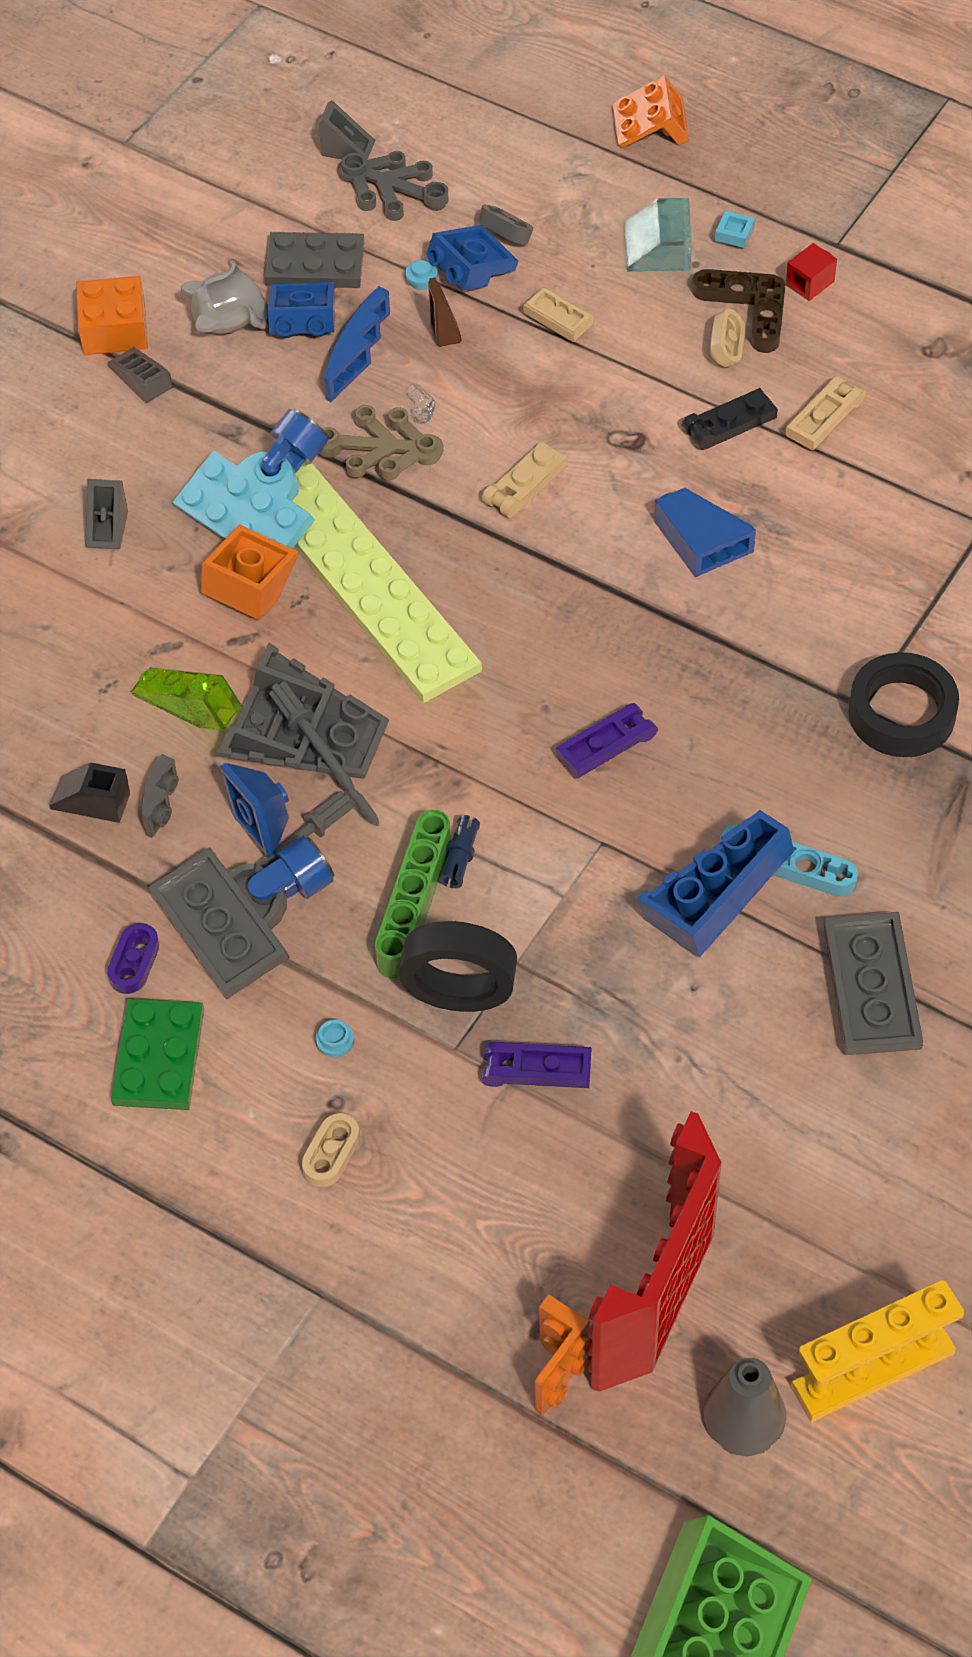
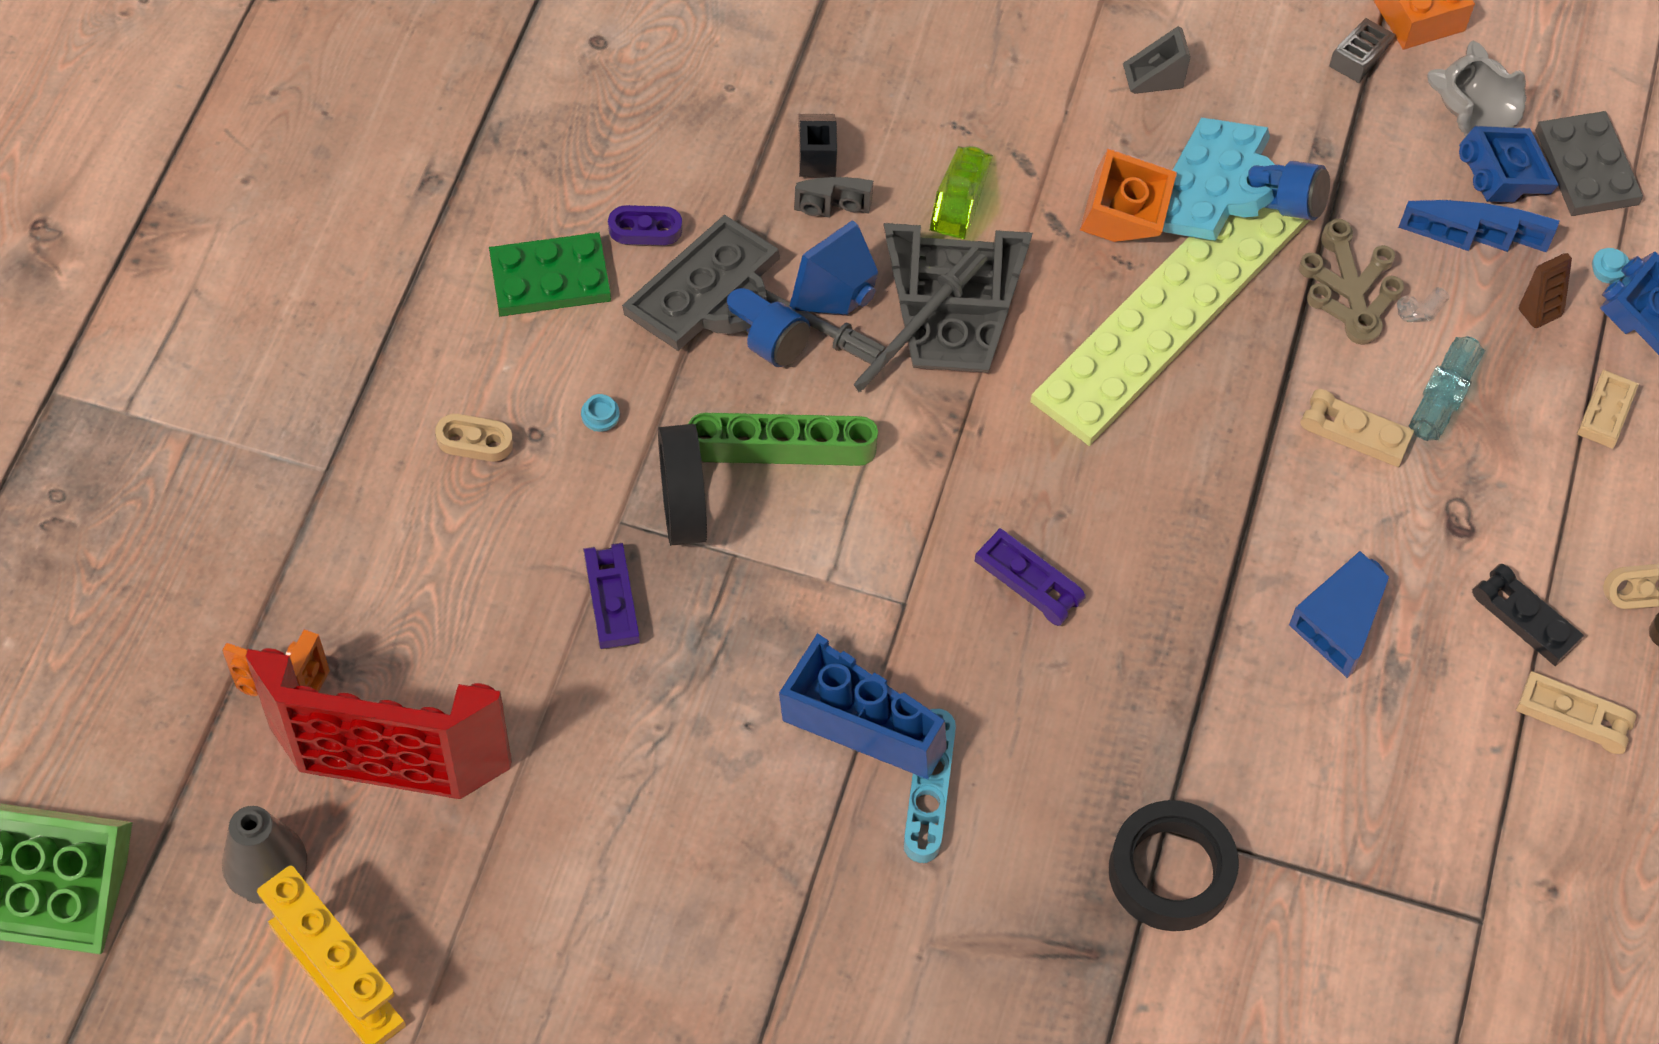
camera: 70 degrees right, 5 degrees up
(459, 851) = (848, 471): dark blue pin -> none
(508, 408) = (1446, 388): none -> clear light blue piece
(872, 983) = (791, 894): dark grey plate -> none

